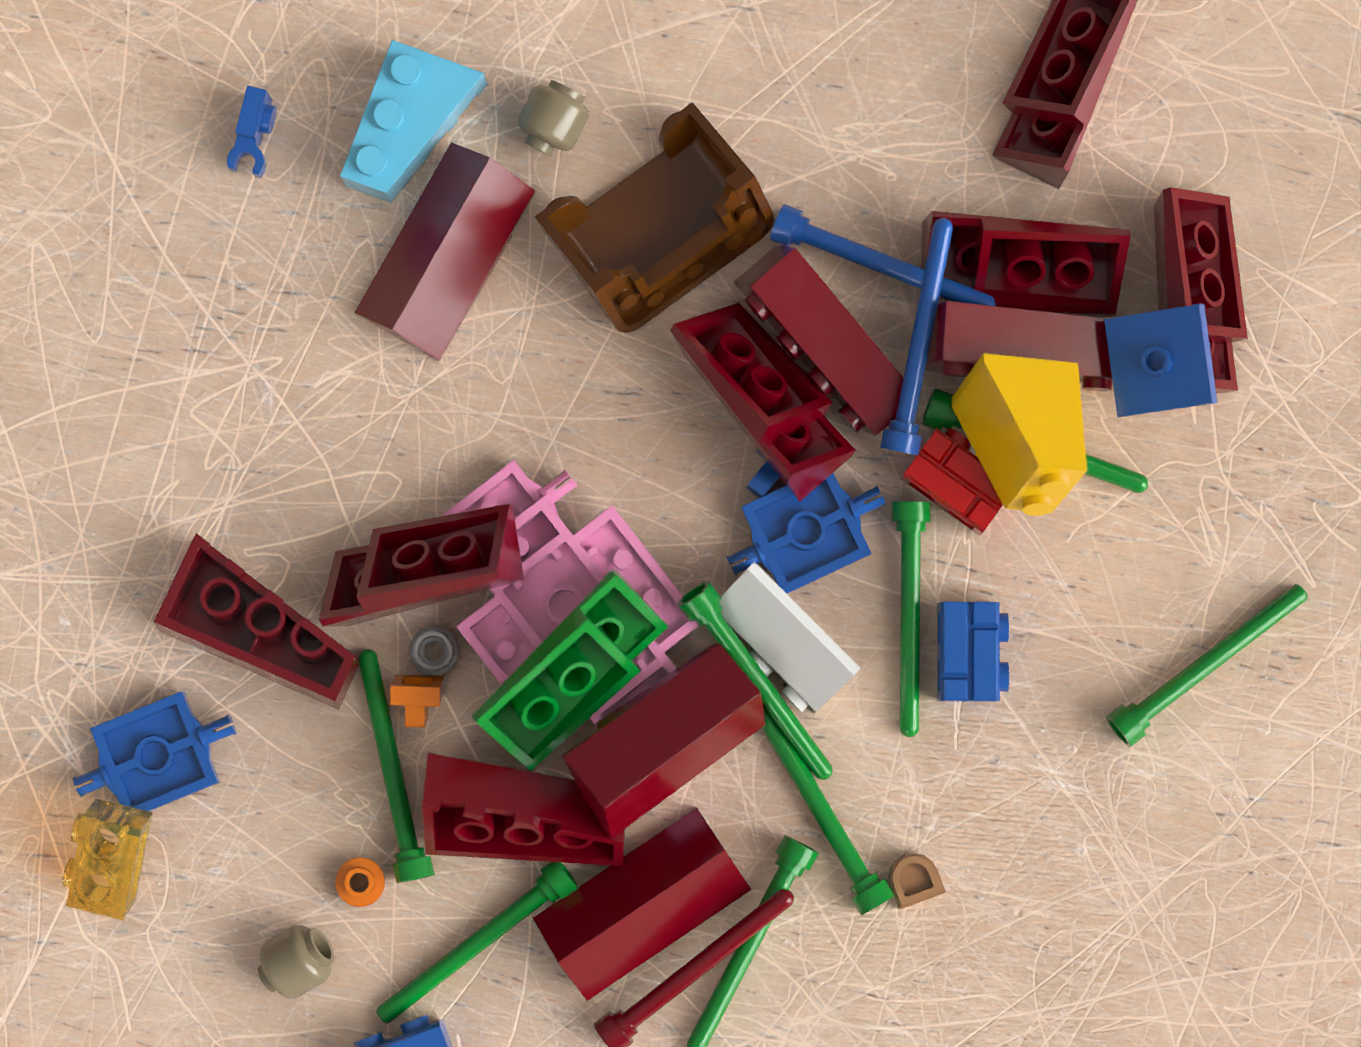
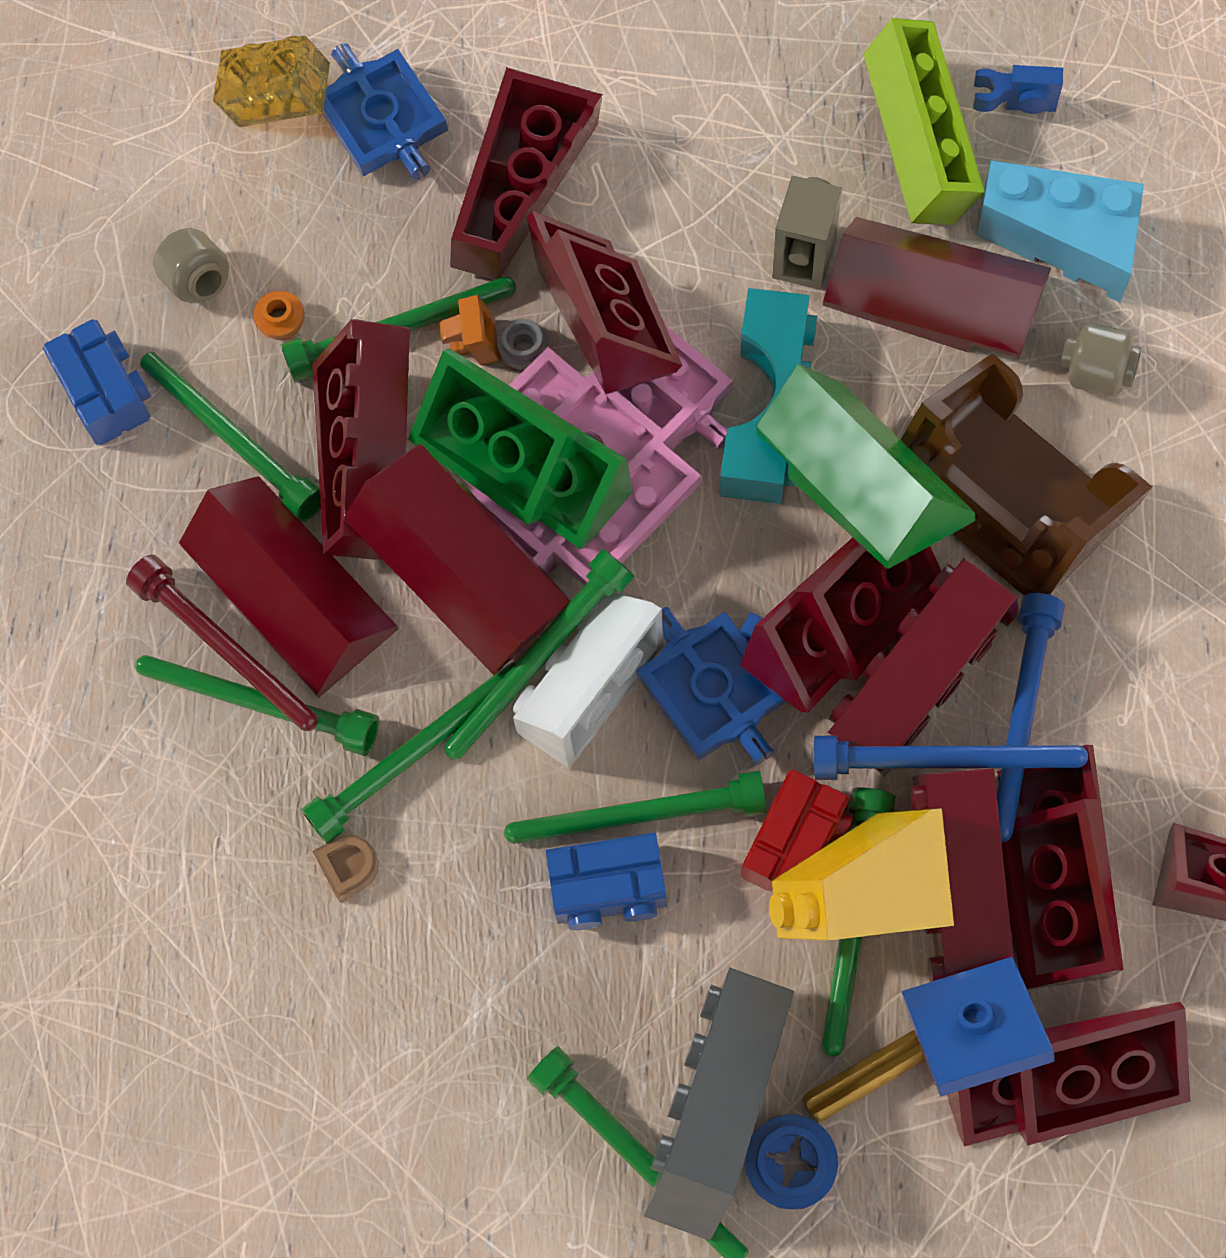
camera: 85 degrees right, 15 degrees down
(276, 230) = (923, 122): none -> lime brick
(379, 362) = (806, 231): none -> dark tan brick
(473, 411) = (772, 339): none -> teal arch
(644, 360) = (859, 469): none -> slope
(1171, 463) = (863, 1077): none -> pearl gold axle
(1180, 584) = (719, 1105): none -> dark grey wedge
(1252, 527) = (816, 1149): none -> blue gear

